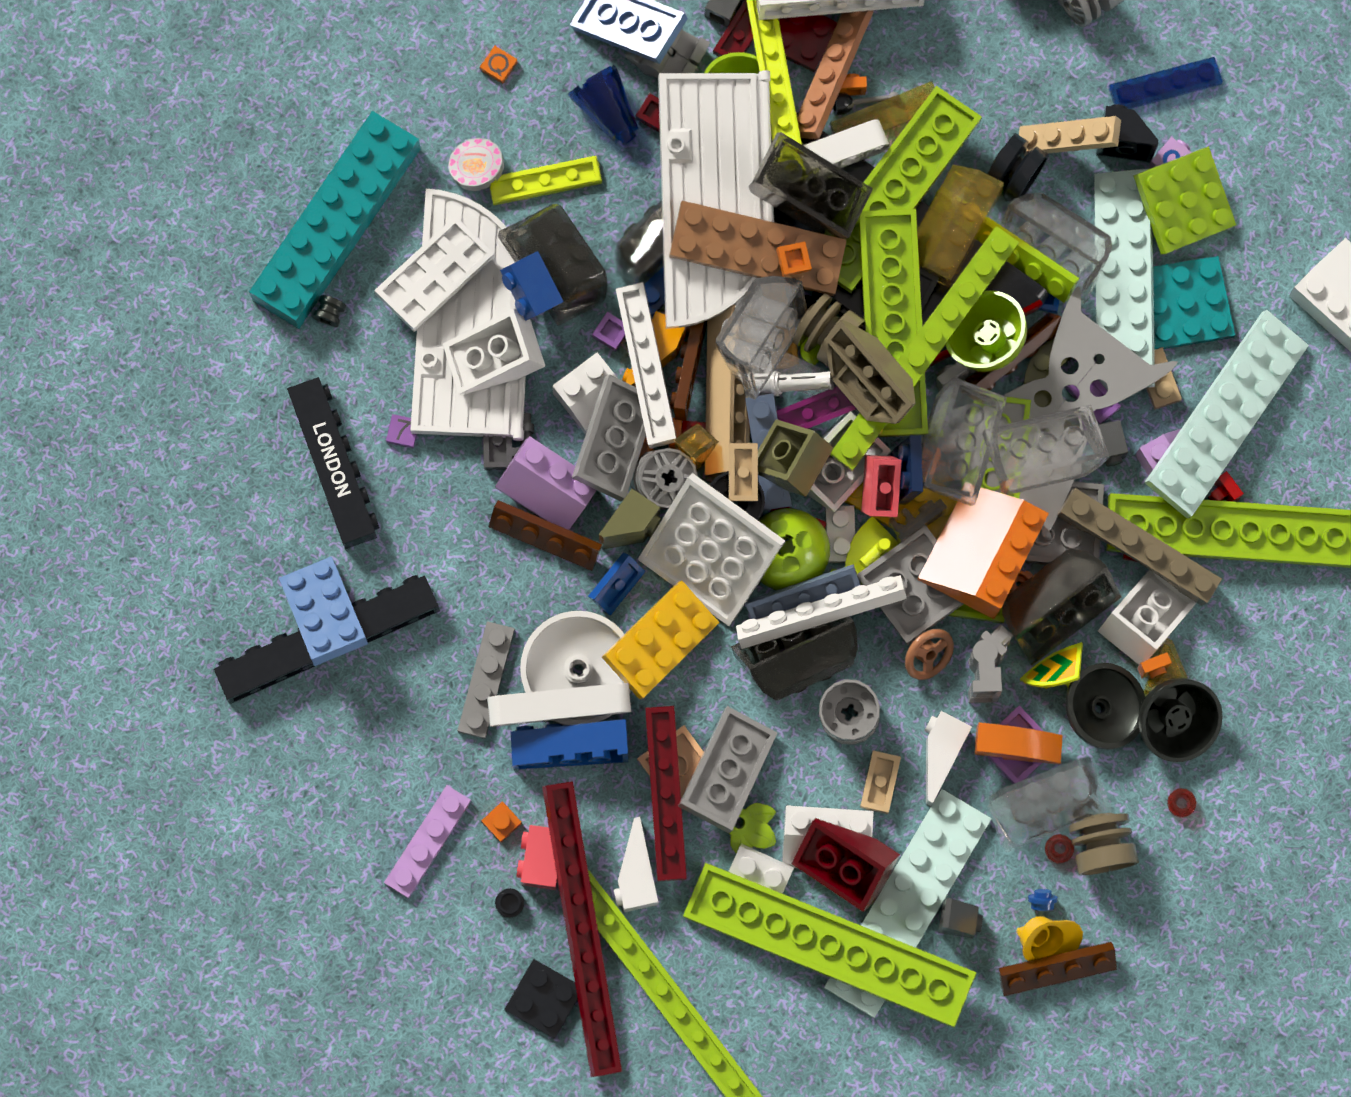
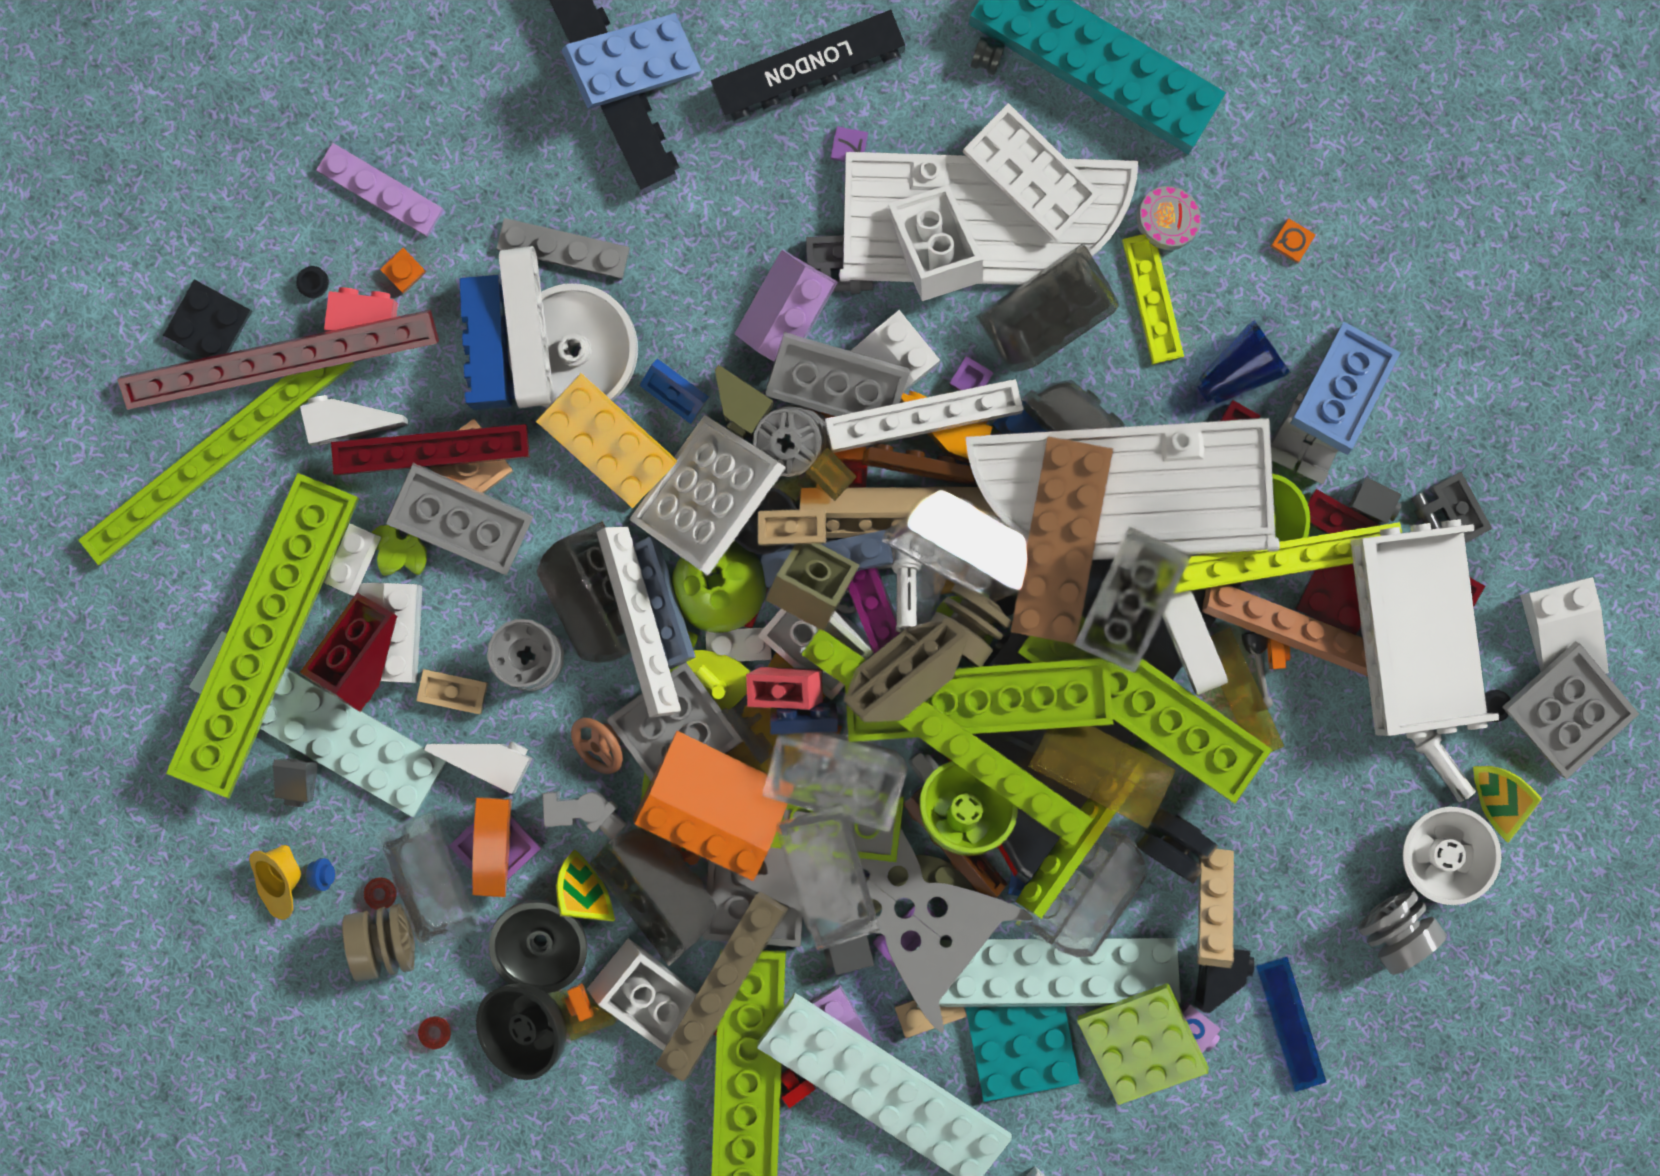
camera: 90 degrees right, 10 degrees up
(531, 286) = (1011, 278): blue slope -> none
(545, 535) = (728, 308): reddish brown plate -> none
(793, 259) = (1045, 580): orange plate -> none
(1057, 968) = (243, 889): reddish brown plate -> none

